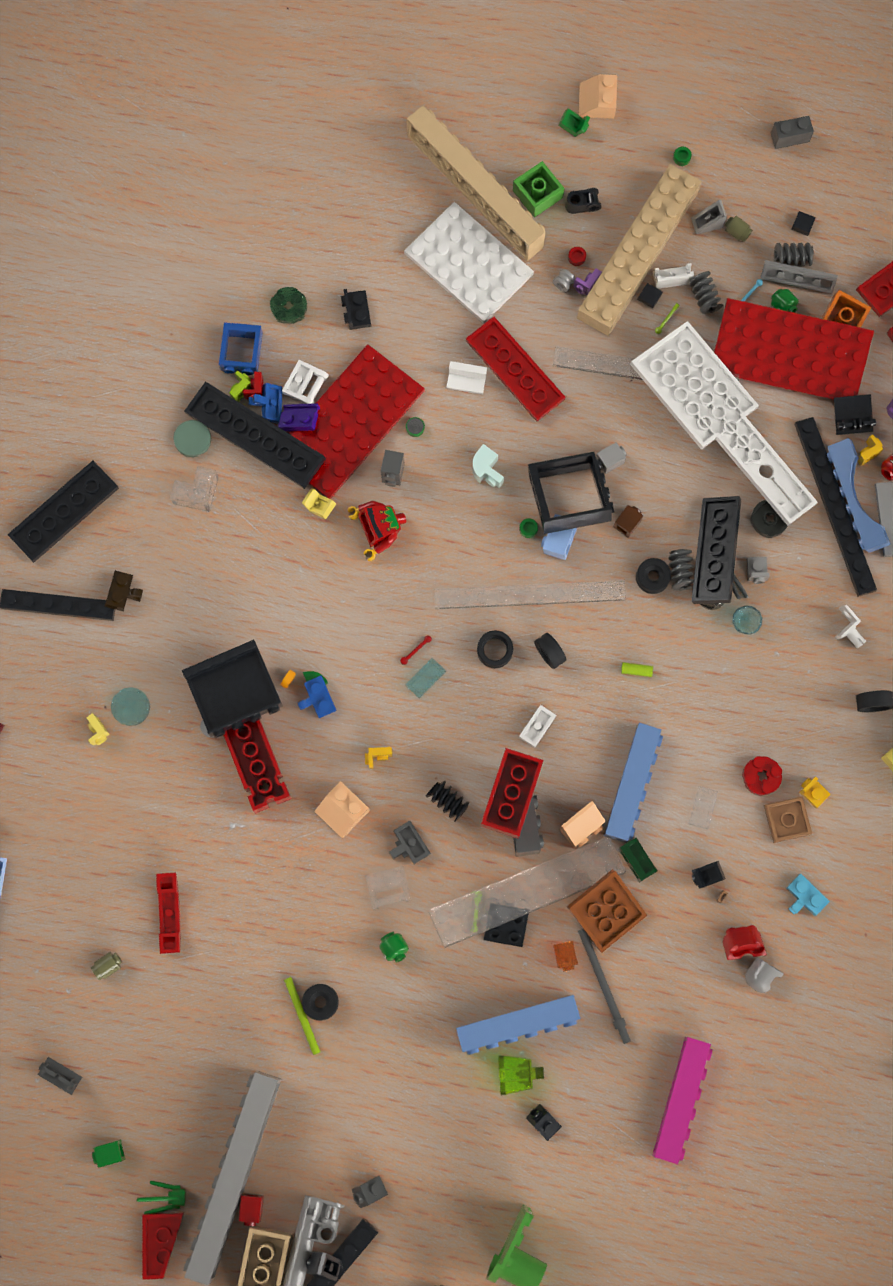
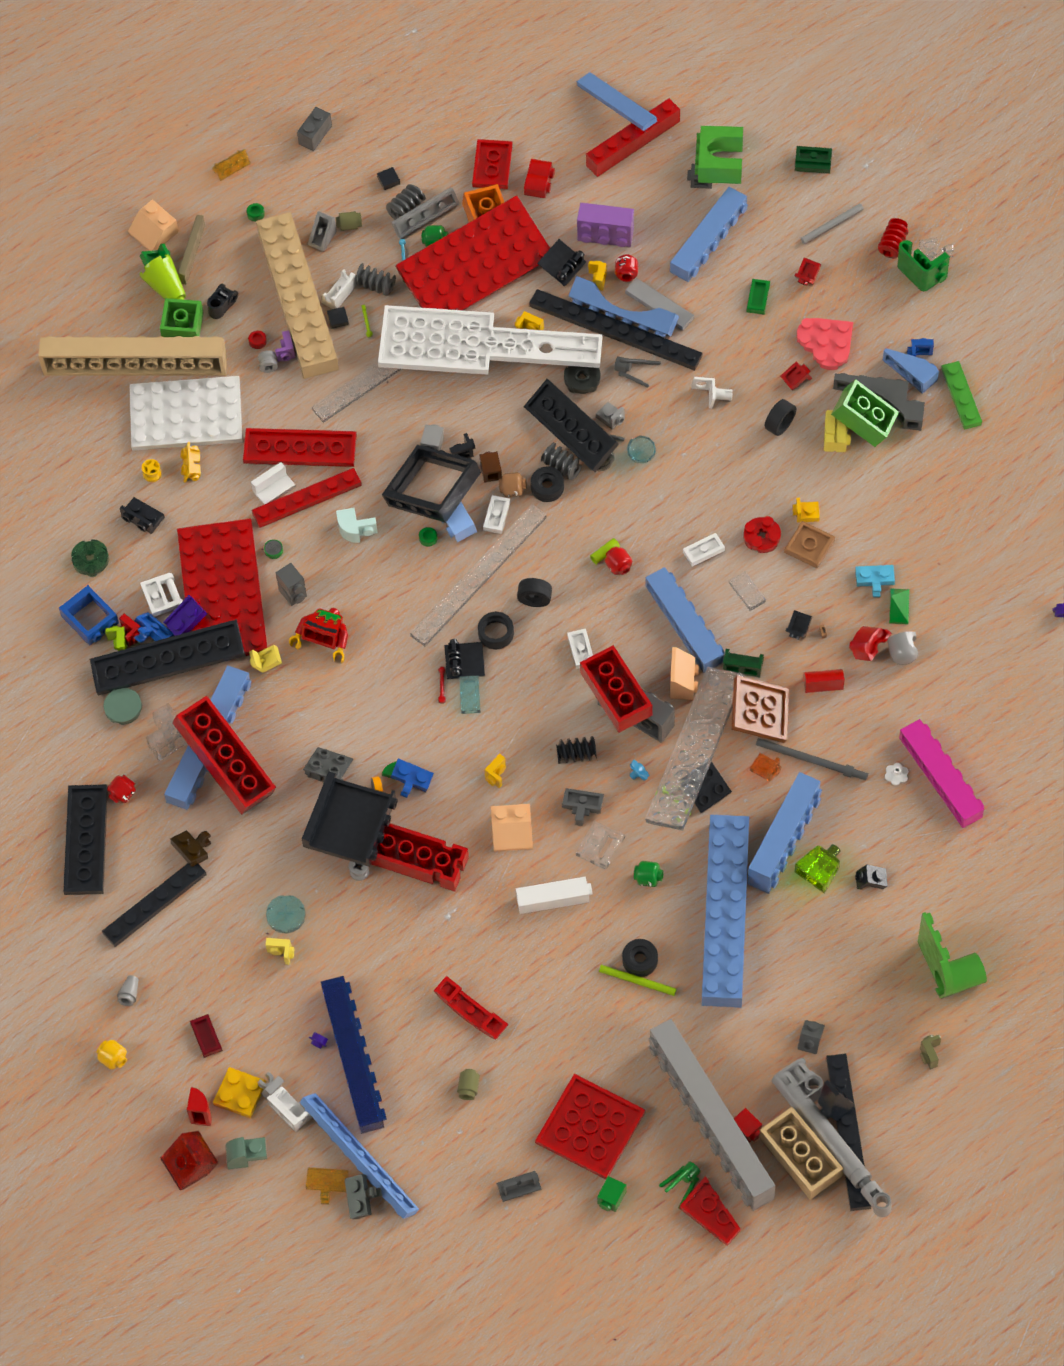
camera: 45 degrees left, 15 degrees down
(49, 823) = (318, 1040): none -> dark purple plate
(57, 859) = (352, 1054): none -> clear blue brick
(123, 499) = (121, 789): none -> red head
(151, 1087) = (590, 1126): none -> red plate
(206, 549) = (224, 755): none -> red brick
(218, 522) = (191, 771): none -> medium blue brick
(274, 628) = (325, 761): none -> dark grey hinge
(314, 890) = (553, 895): none -> white brick
(398, 278) = (151, 465): none -> yellow wheel
(414, 1034) = (725, 911): none -> medium blue brick
(435, 298) = (190, 456): none -> yellow hinge
(450, 648) = (464, 659): none -> black hinge
(474, 862) = (638, 771): none -> dark azure plant
(479, 411) = (306, 497): none -> red plate
(560, 146) = (163, 278): none -> lime cone
(592, 561) = (496, 514): none -> white plate
(605, 140) = (191, 249): none -> dark tan tile
(621, 488) = (465, 449): none -> black bracket
(627, 551) = (512, 485): none -> medium nougat head
(636, 688) = (618, 561): none -> red head
(646, 1059) = (896, 774): none -> white plant
(679, 935) = (823, 680): none -> red brick
(706, 103) = (231, 164): none -> clear yellow hinge
(707, 743) = (703, 549): none -> white plate
(779, 439) = (529, 321): none -> yellow bracket
(799, 936) = (899, 606): none -> green slope
(810, 541) = (624, 364): none -> dark grey plant

